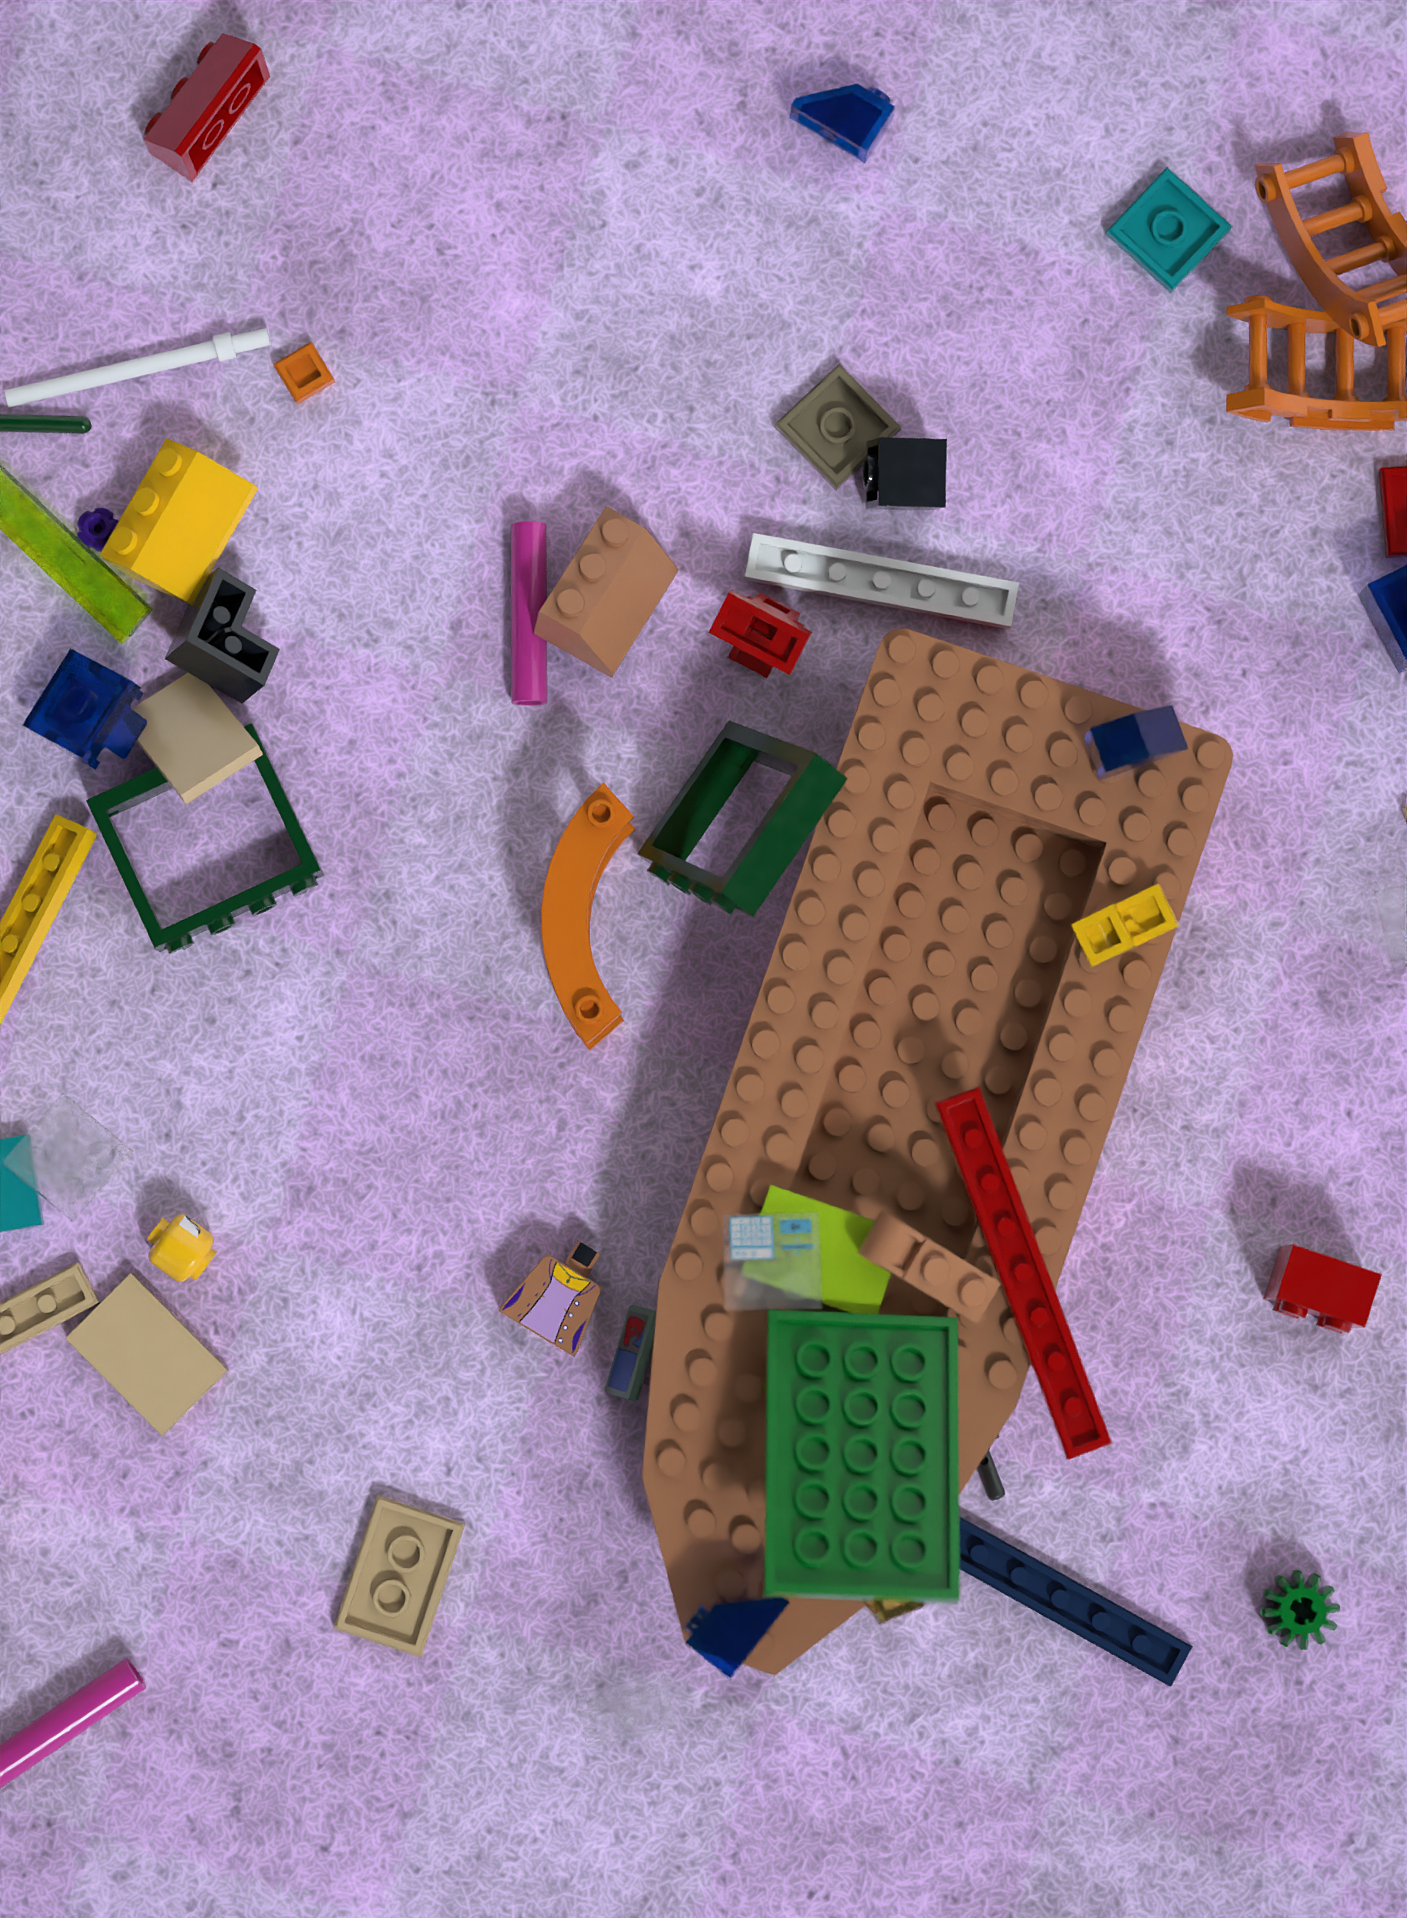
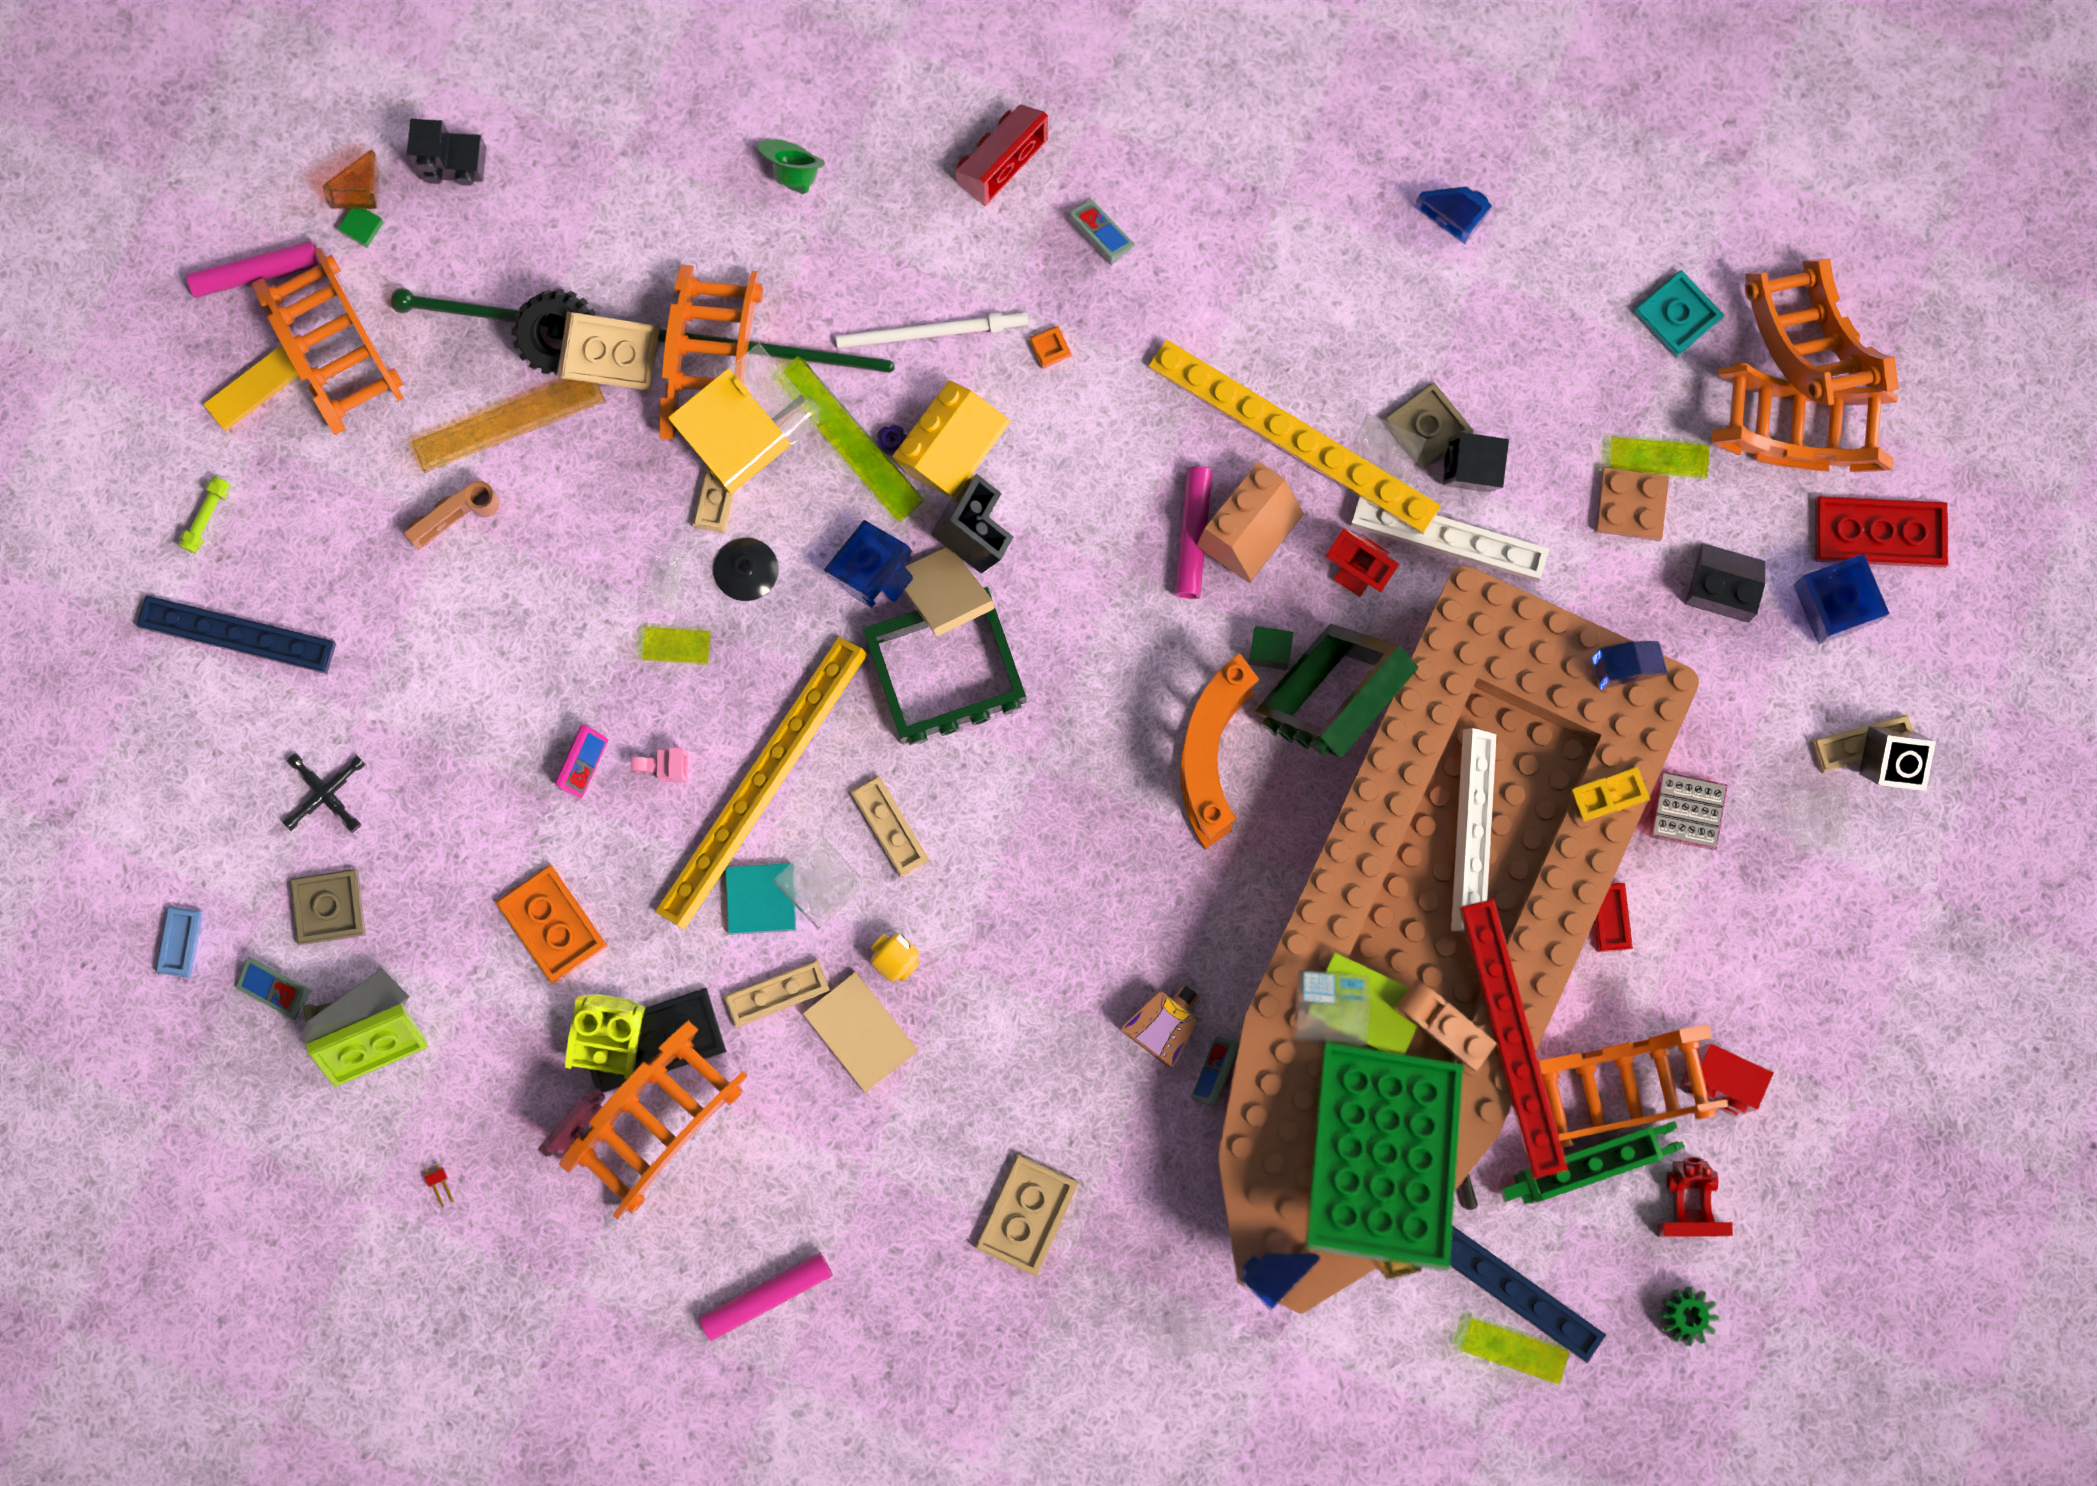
camera: 10 degrees right, 5 degrees down
(155, 1068) = (890, 826): none -> tan tile
(357, 200) = (1100, 231): none -> slope
(650, 763) = (1271, 648): none -> dark green panel
(653, 464) = (1295, 437): none -> yellow plate
(778, 478) = (1388, 447): none -> clear plate
(945, 980) = (1473, 821): none -> white plate
(1073, 1682) = (1515, 1351): none -> clear neon green tile
(1128, 506) = (1632, 504): none -> nougat plate
(1153, 1085) = (1613, 921): none -> red tile
(1159, 437) = (1660, 457): none -> clear neon green tile
(1159, 1421) = (1594, 1165): none -> green hinge
(1181, 1273) = (1623, 1058): none -> orange fence
(1241, 924) = (1688, 811): none -> light grey tile
(1267, 602) = (1727, 583): none -> black slope
(1296, 1482) = (1693, 1174): none -> red tile

